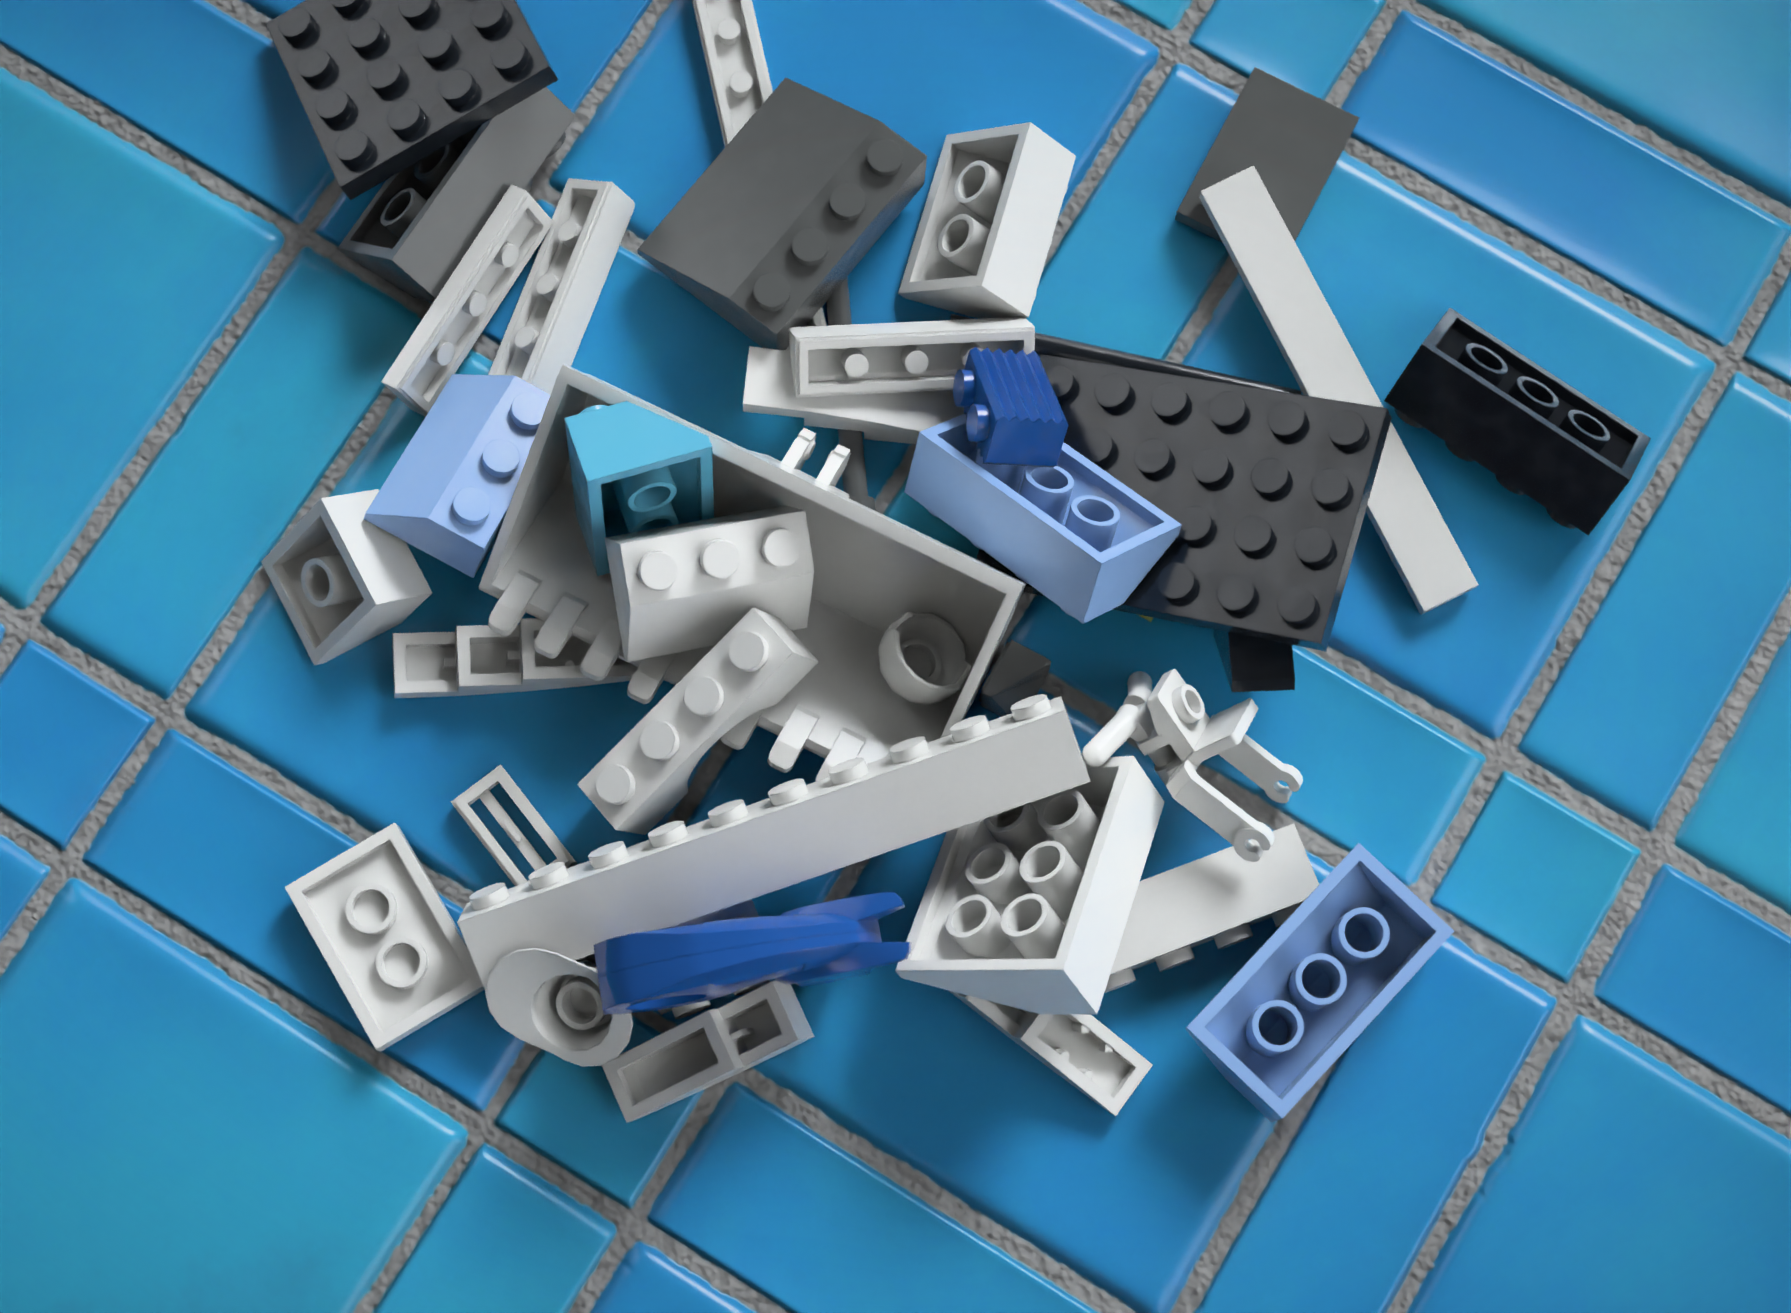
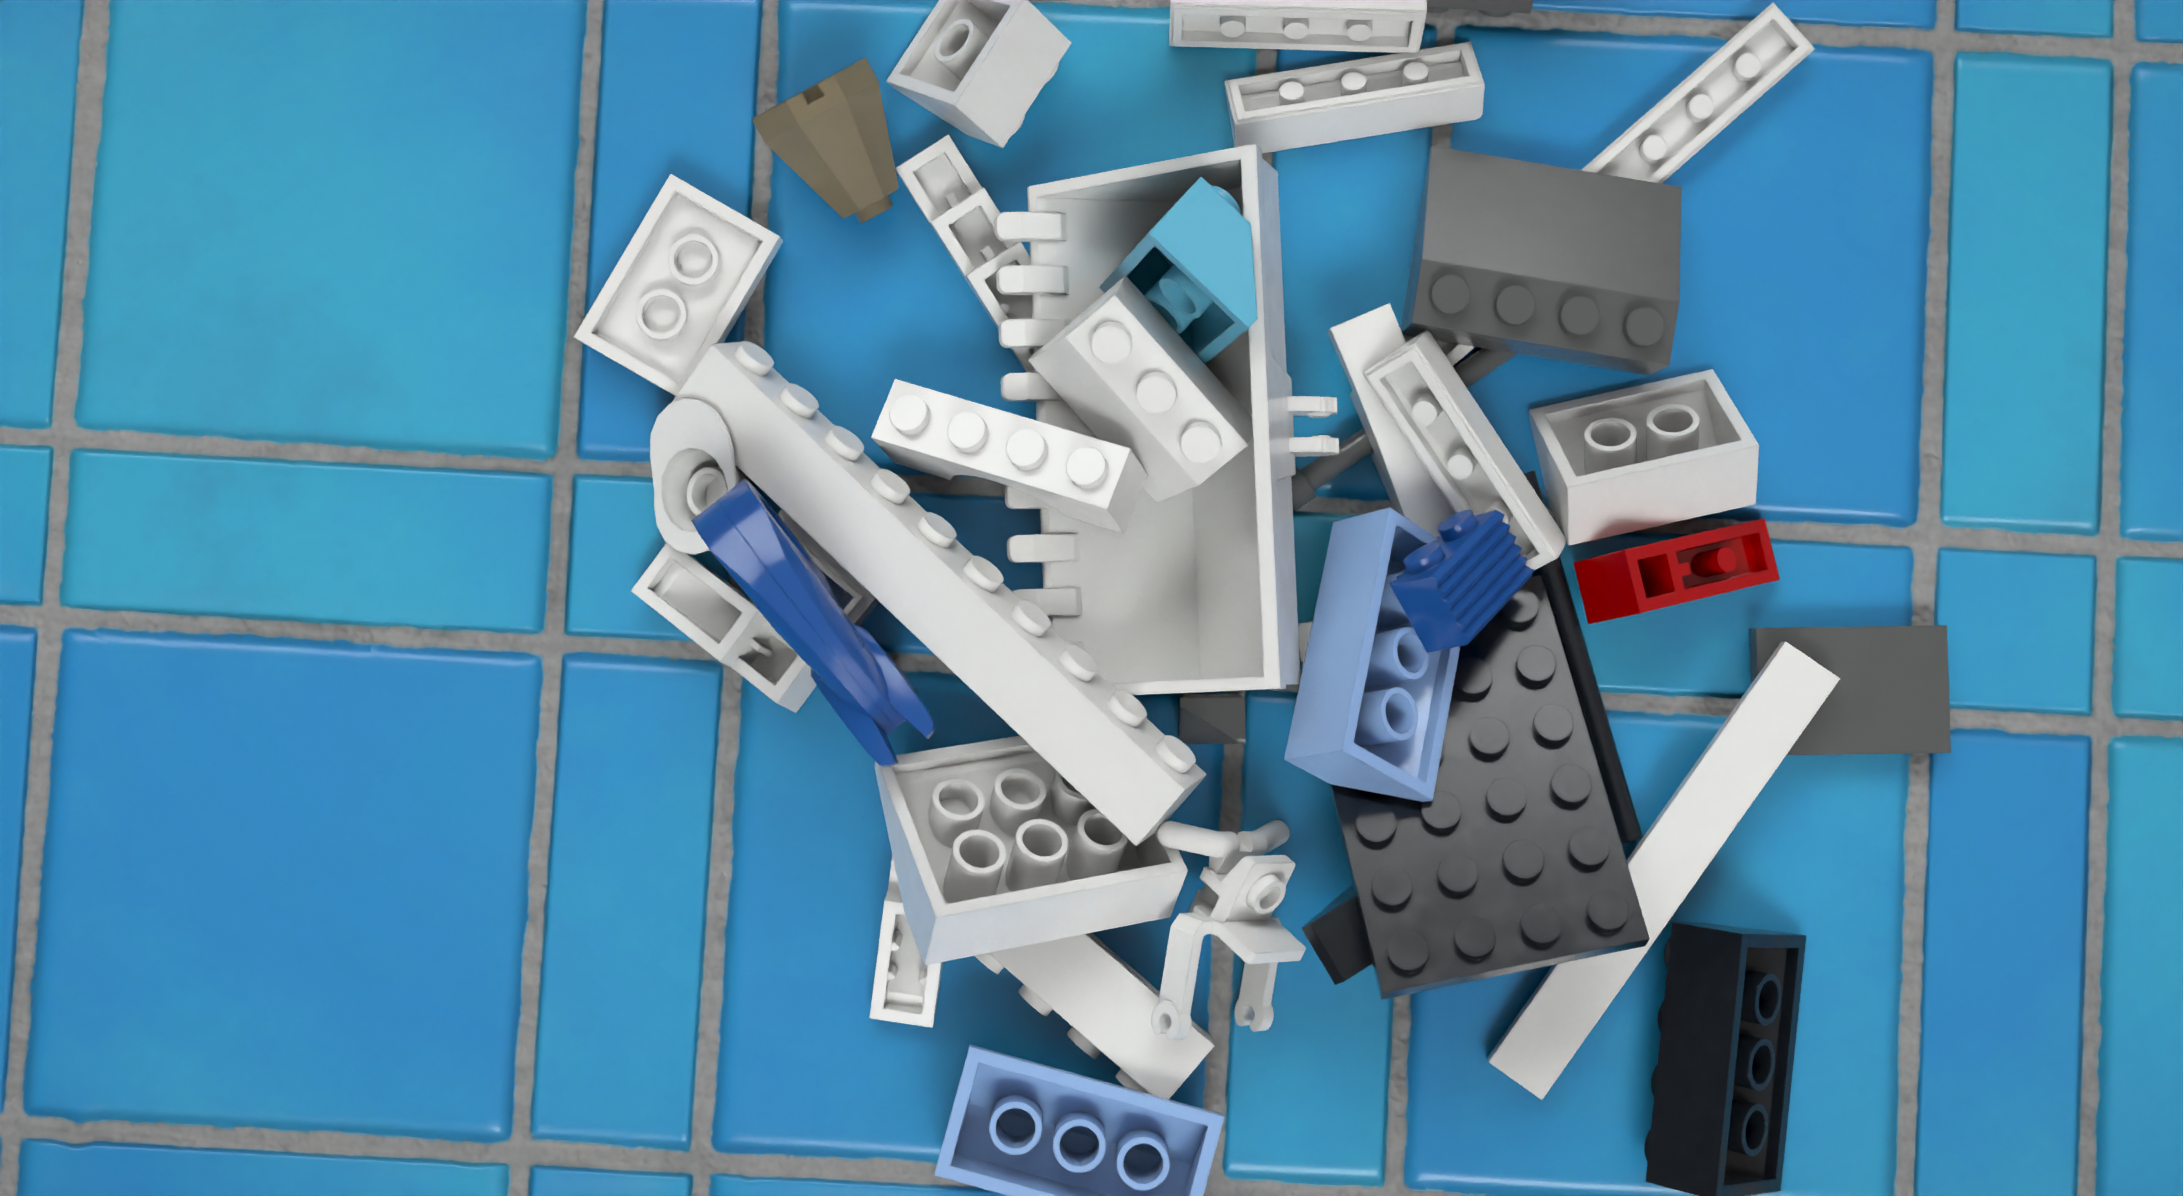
camera: 65 degrees right, 10 degrees up
(342, 726) = (837, 141): none -> dark tan cone
(461, 469) = (1129, 106): light blue slope -> none
(481, 790) = (857, 351): white tile -> none
(923, 658) = (1182, 626): white hair -> none
(1095, 248) = (1676, 571): none -> red slope

